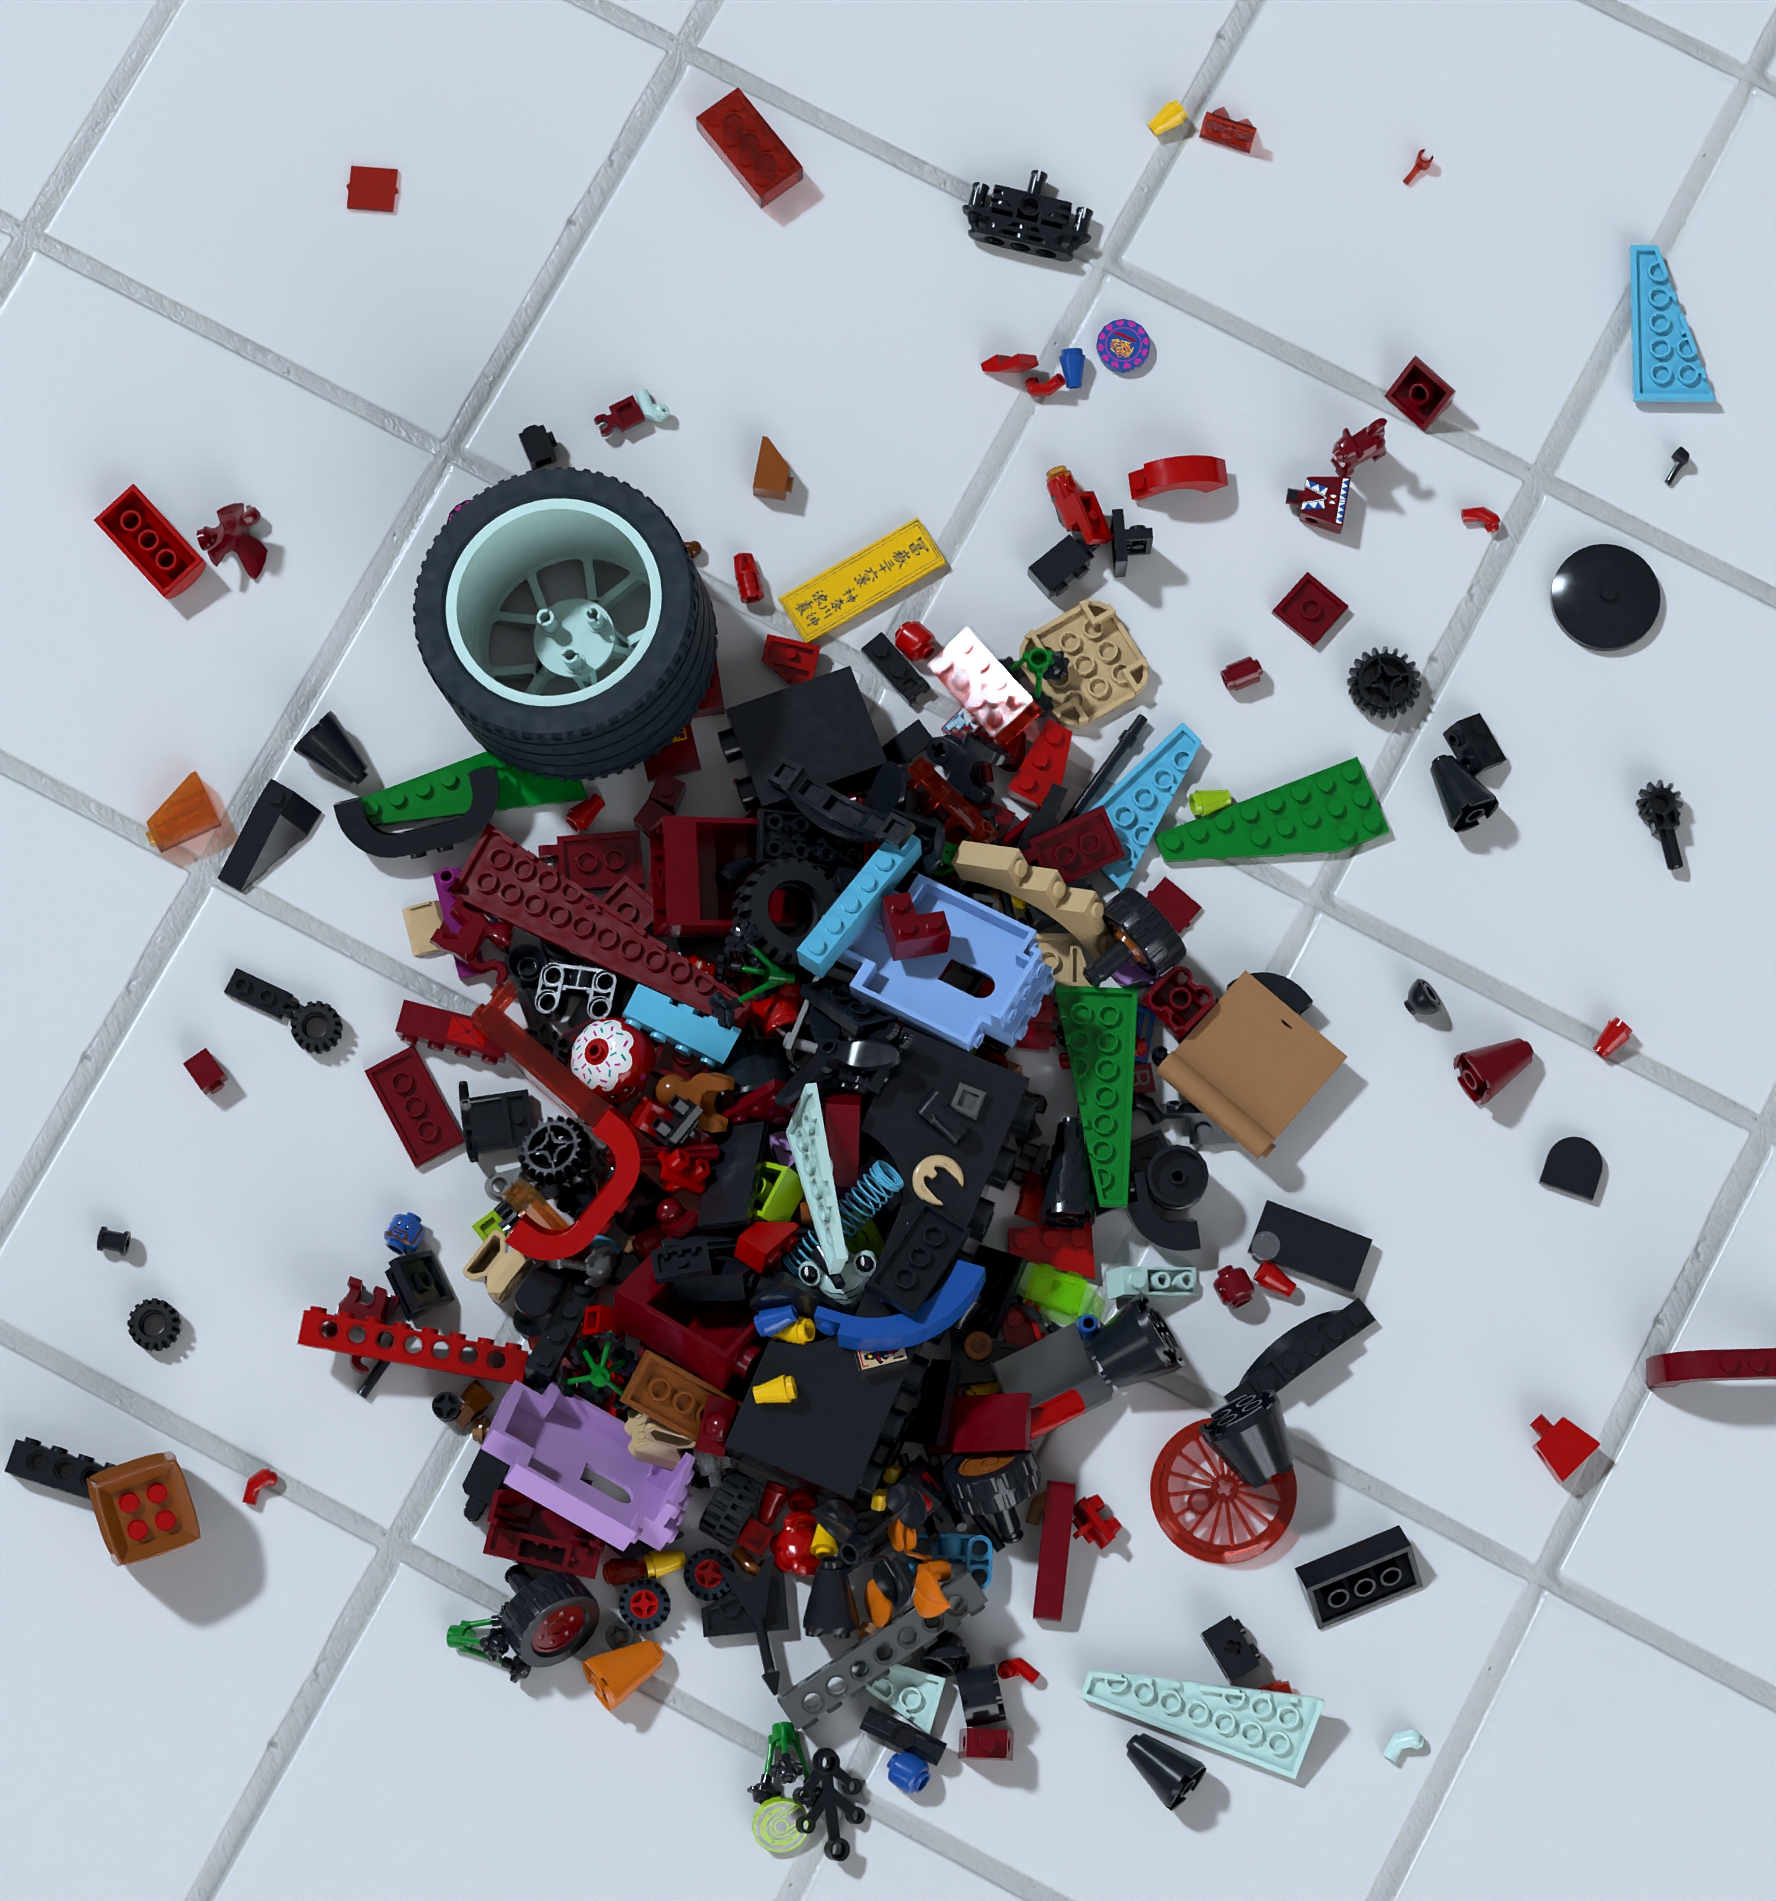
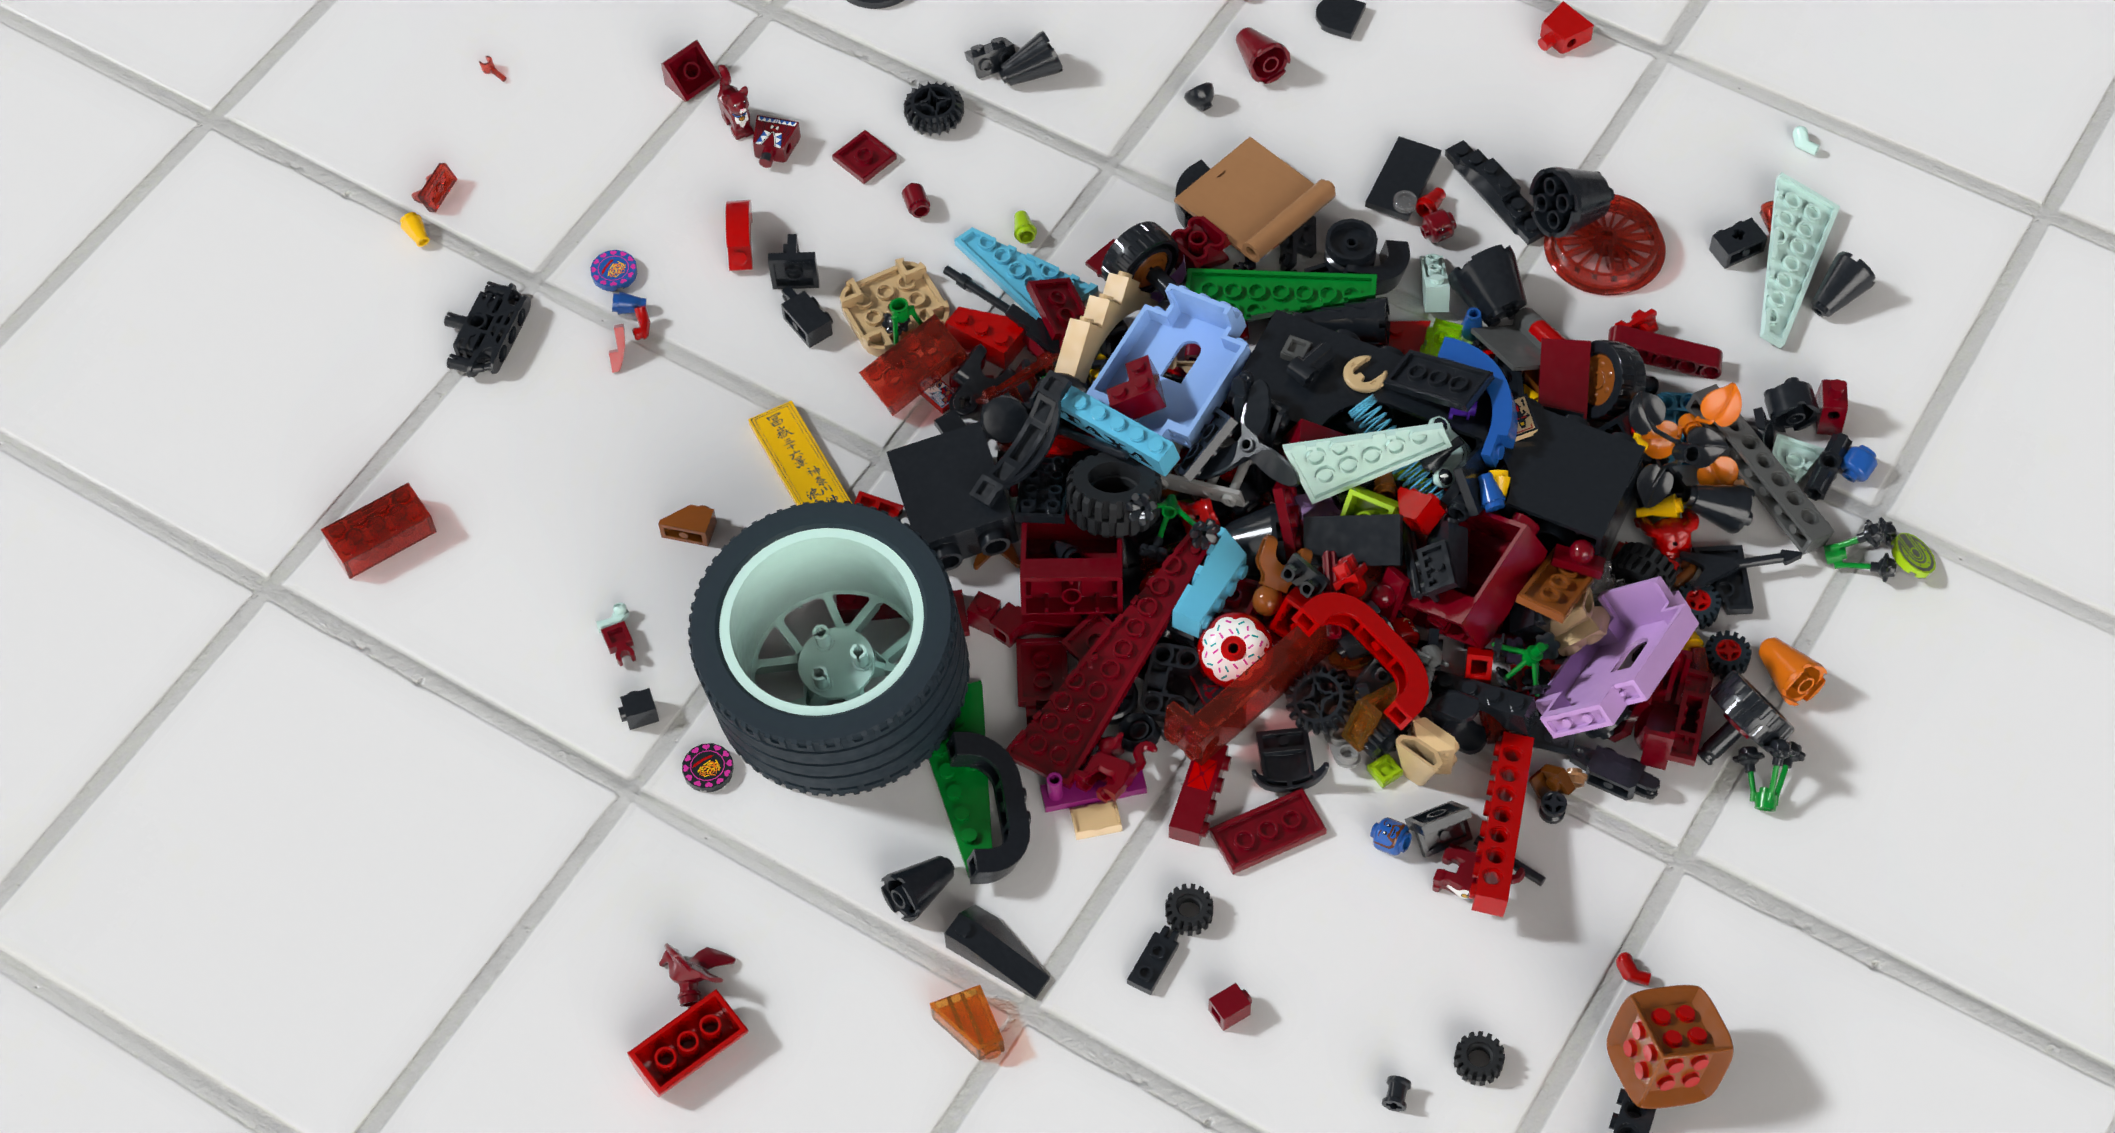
camera: 85 degrees left, 20 degrees down
(372, 189) = (352, 848): clear red piece -> none
(584, 813) = (997, 682): red cone -> none
(619, 1635) = (1757, 676): dark grey tile -> none
(776, 1390) = (1554, 491): yellow cone -> none
(802, 1500) = (1629, 531): red tile -> none
(829, 1800) = (1896, 515): black plant -> none
(895, 668) = (876, 446): black plate -> none
(915, 641) = (862, 423): red head -> none
(1017, 1667) = (1763, 384): red arm -> none
(1075, 508) = (758, 304): red plate -> none
(1304, 817) = (1042, 171): green wing -> none
(1359, 1577) = (1672, 158): black slope -> none
(1481, 514) = (797, 43): red arm -> none

